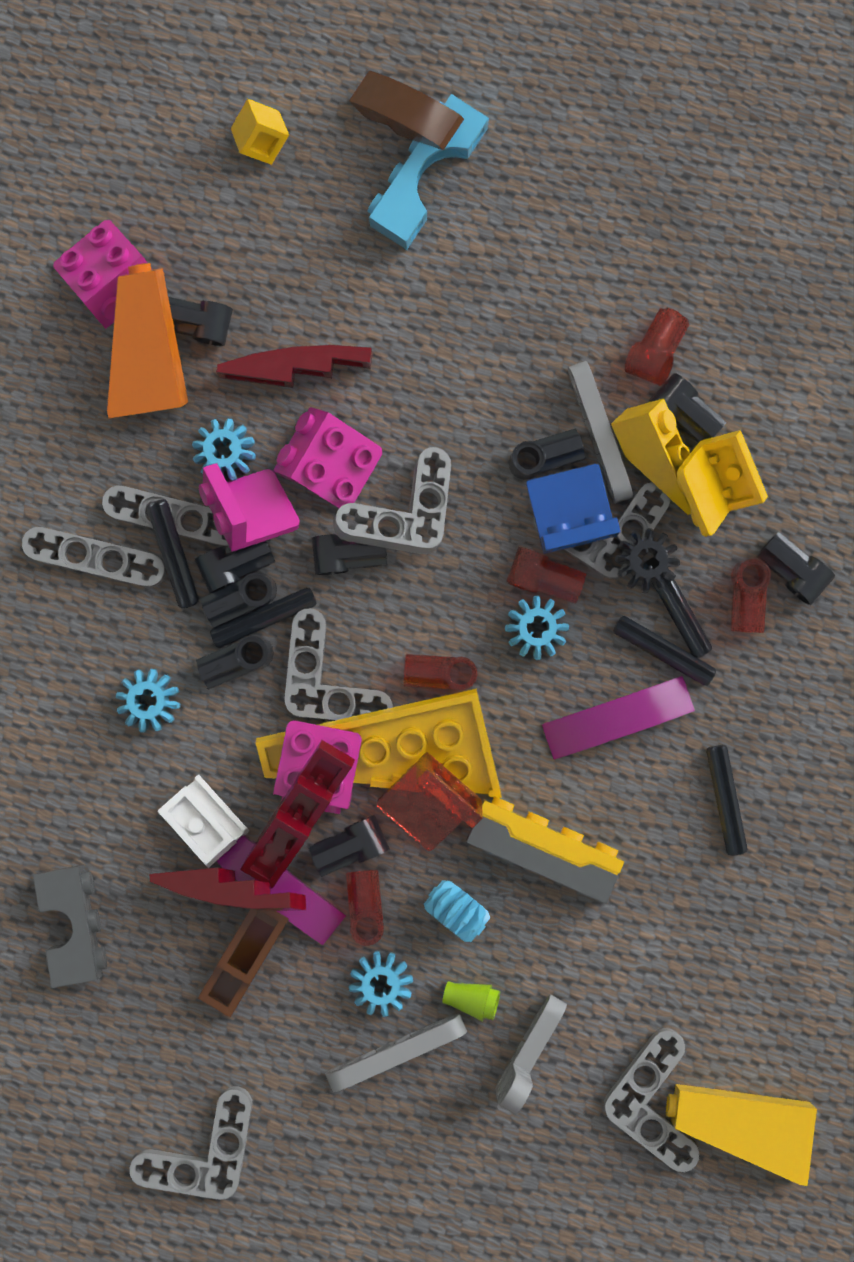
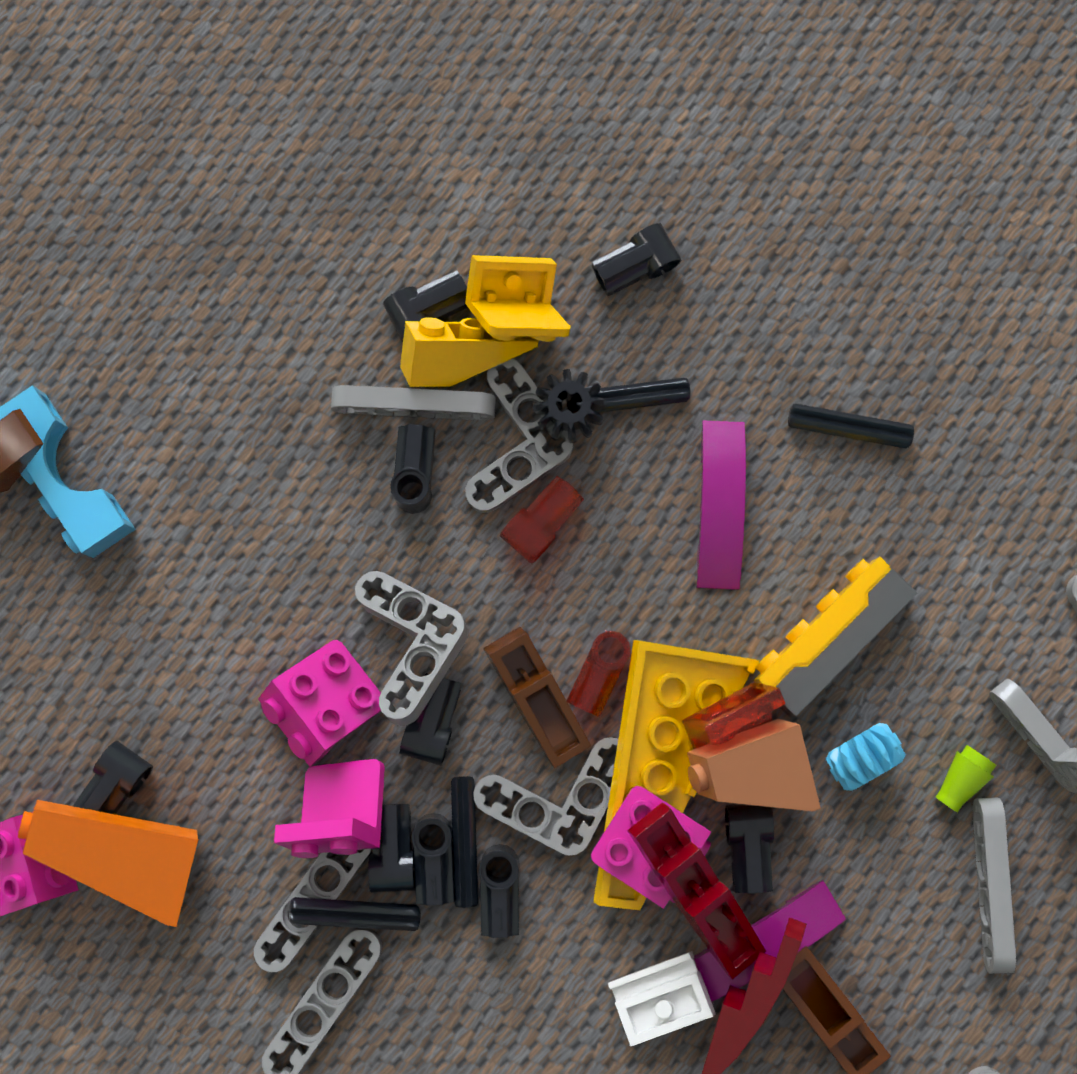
camera: 65 degrees left, 5 degrees down
(141, 689) = (488, 1007): medium azure gear -> none
(223, 436) = (267, 795): medium azure gear -> none
(281, 365) = (200, 712): dark red slope -> none
(363, 902) = (819, 854): clear red piece -> none
(393, 980) = (909, 889): medium azure gear -> none
(400, 629) = (537, 696): none -> reddish brown slope
(412, 826) = (757, 768): none -> nougat slope
(545, 636) = (579, 555): medium azure gear -> none
(571, 508) = (482, 463): blue bracket -> none
(653, 356) = (357, 316): clear red piece -> none
(664, 650) = (669, 428): black axle -> none
(748, 601) = (653, 320): clear red piece -> none

